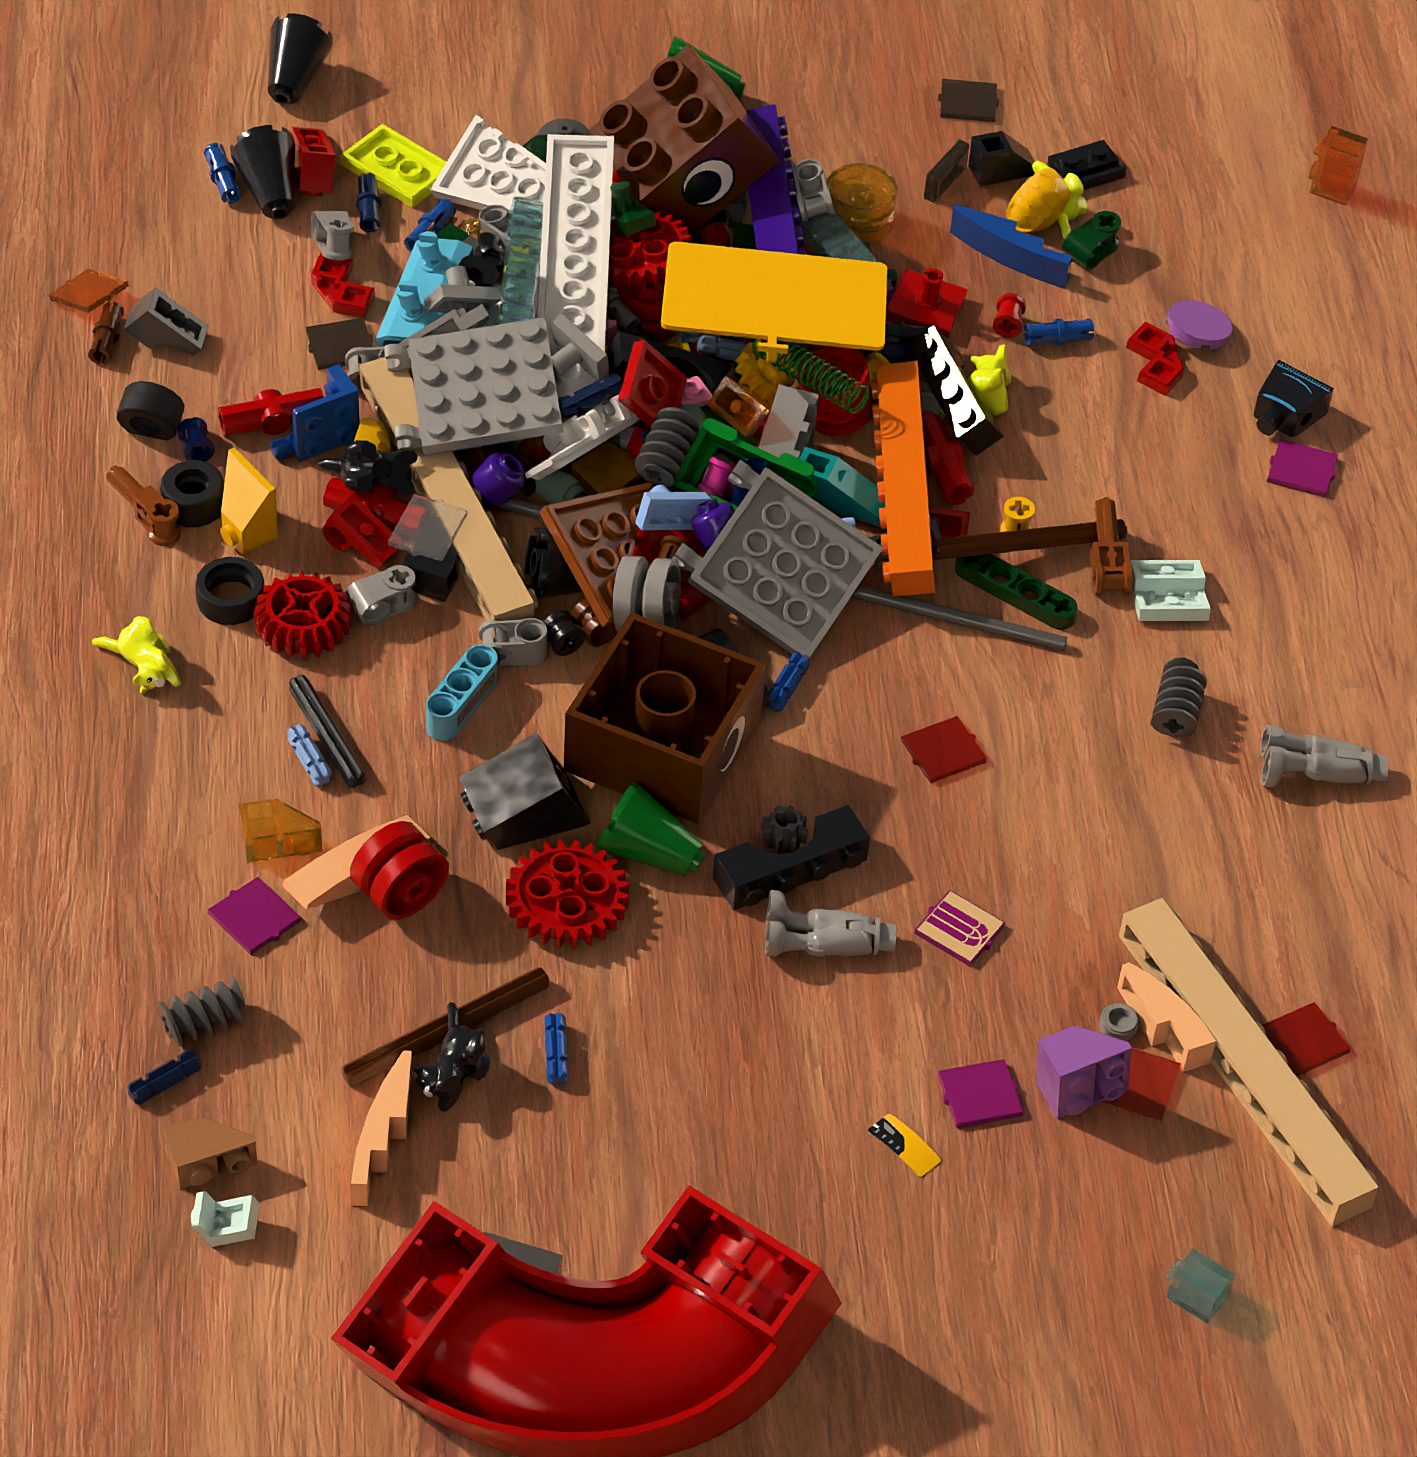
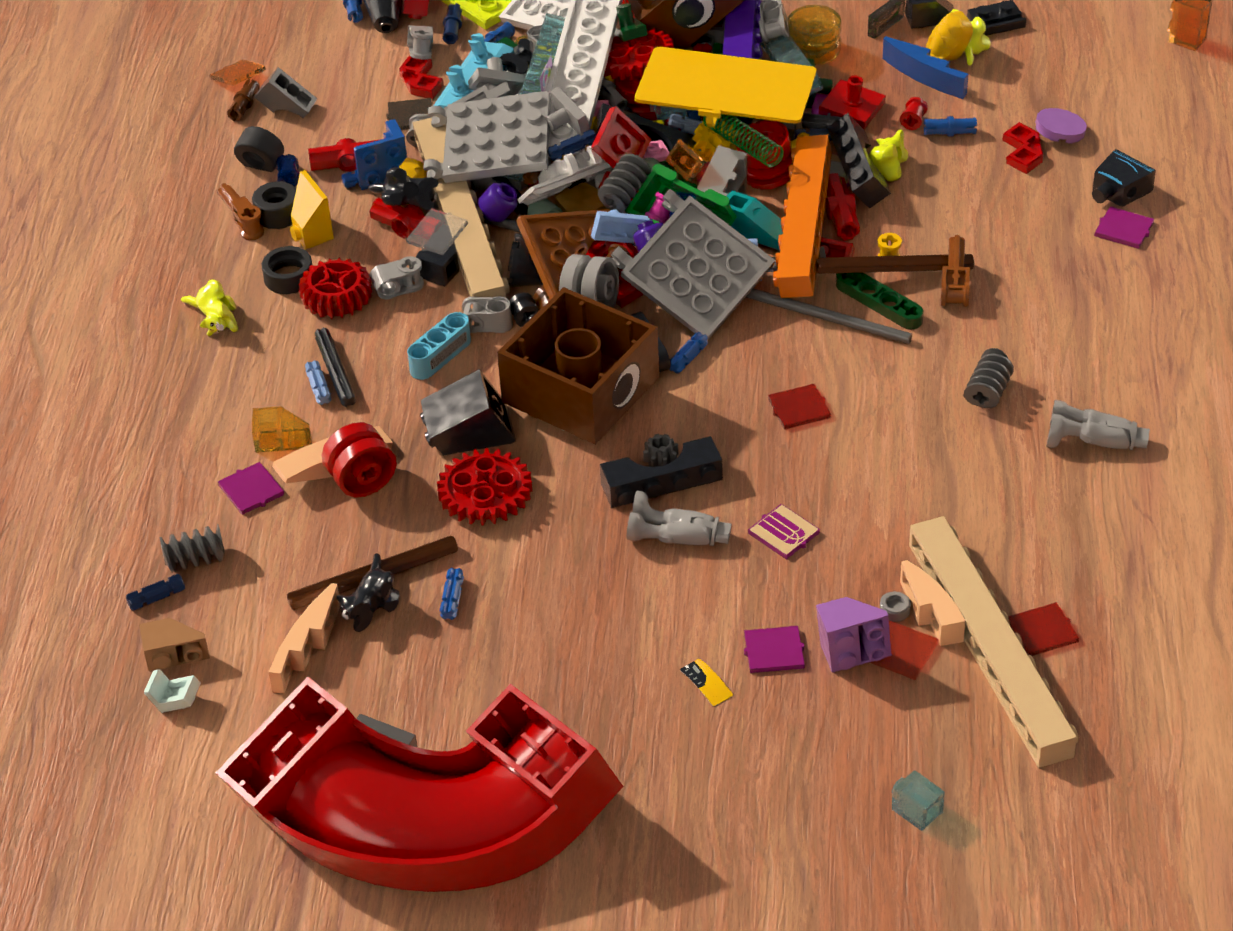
camera: 15 degrees right, 5 degrees down
(358, 527) = (388, 231): red plate -> none
(650, 834) = (554, 447): green cone -> none
(1093, 239) = (989, 65): dark green piece -> none
(1169, 590) = (1000, 306): light aqua slope -> none

